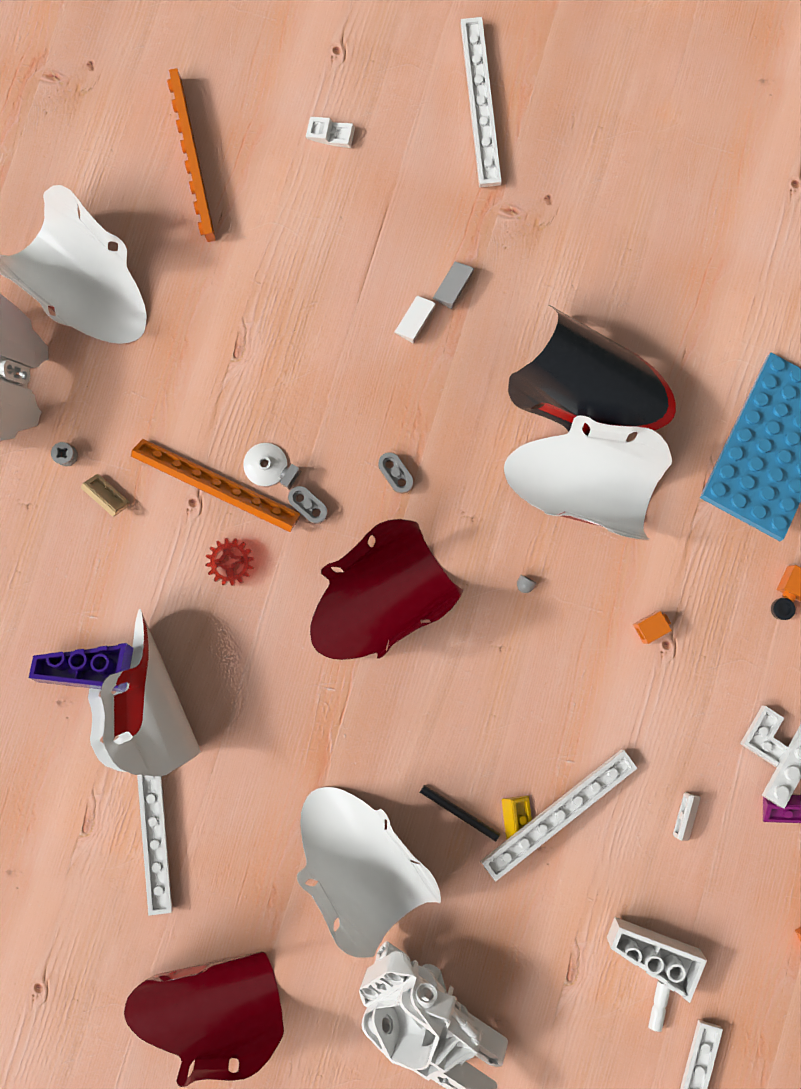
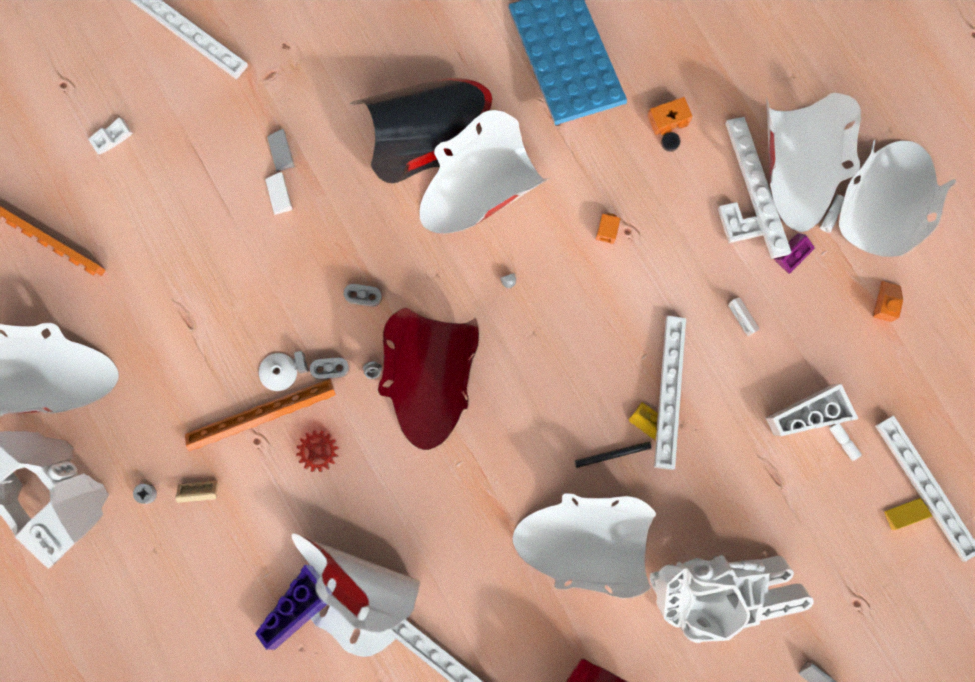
camera: 45 degrees left, 5 degrees down
(340, 542) = (372, 370): none -> light grey plate

